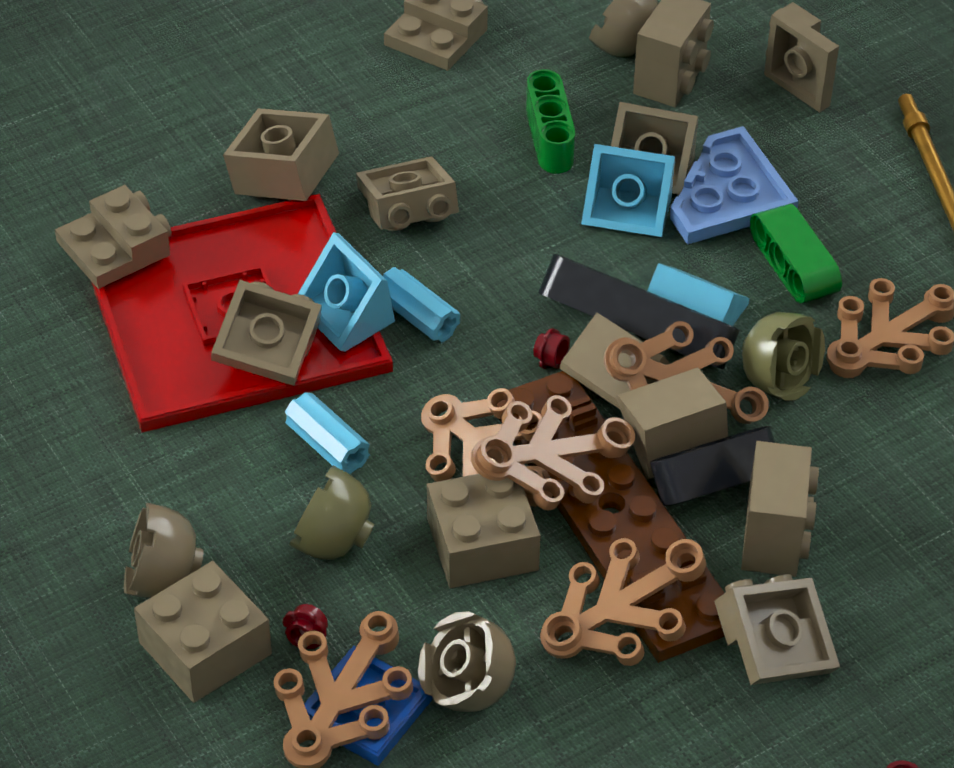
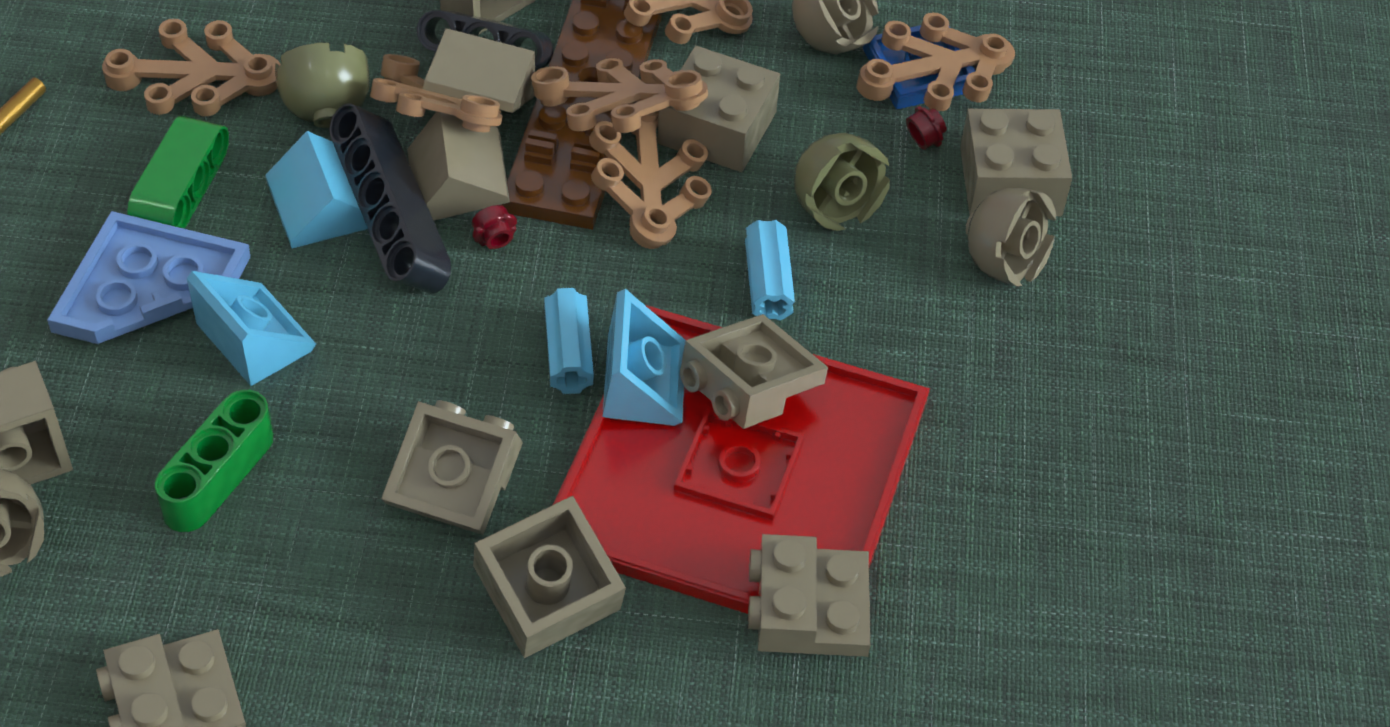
camera: 145 degrees left, 5 degrees up
(659, 133) = (168, 355): dark tan slope -> none

